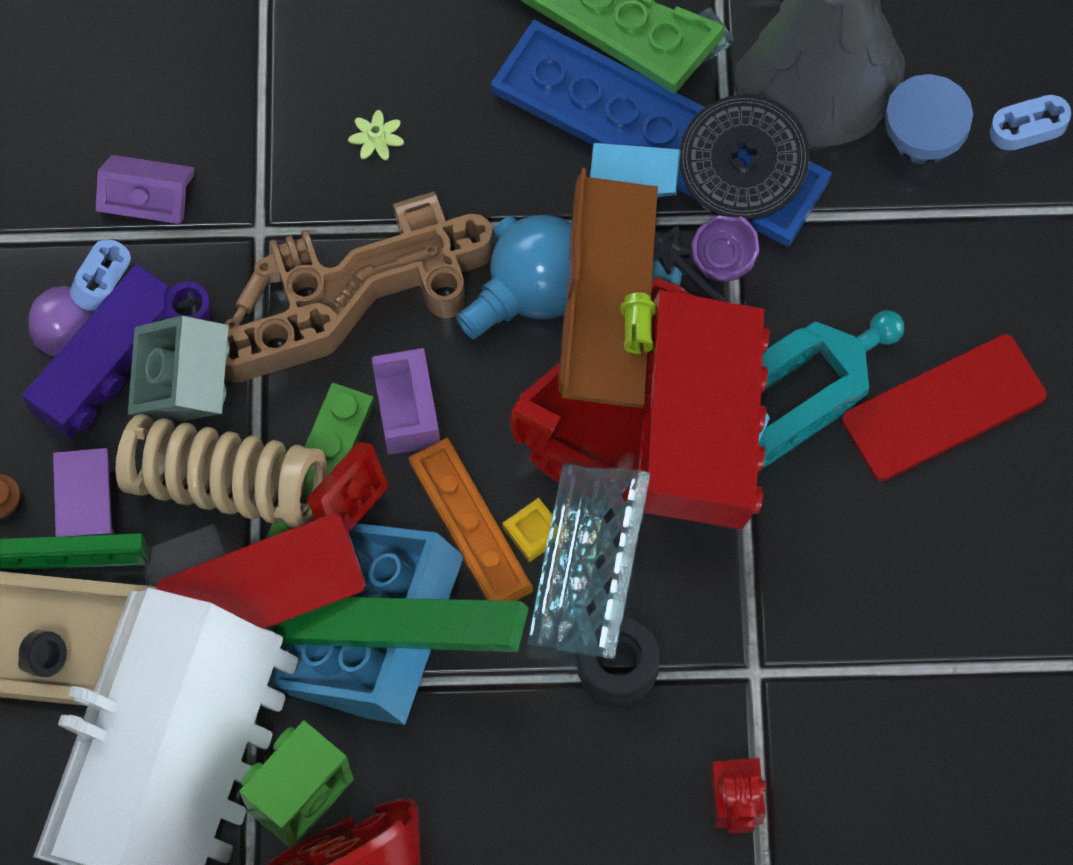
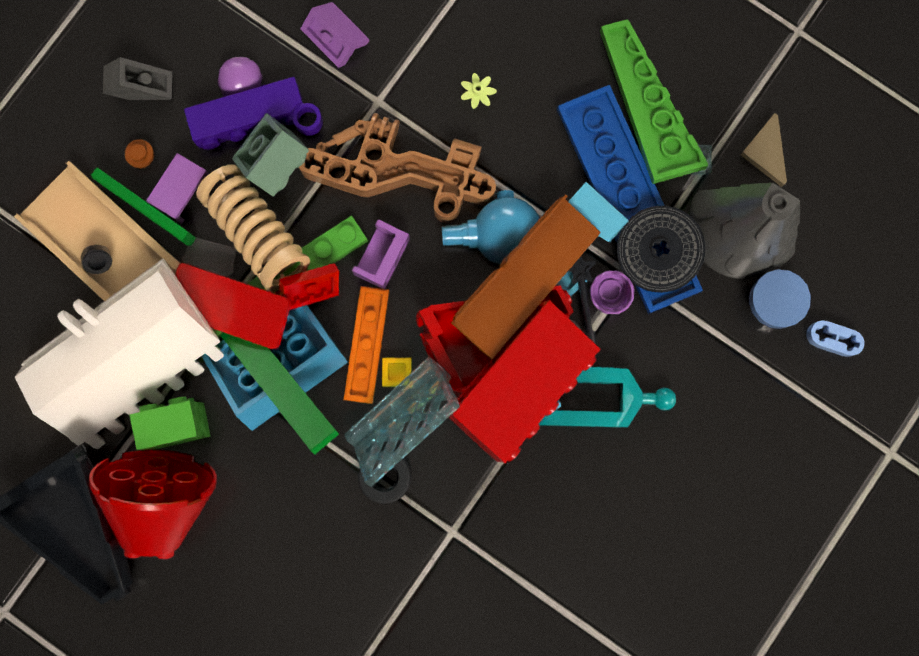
camera: 30 degrees right, 15 degrees up
(93, 271) = (271, 62): light blue beam -> none
(638, 322) = (524, 309): lime pin -> none
(738, 794) = (390, 595): red brick -> none
(943, 407) = (661, 463): red piece -> none

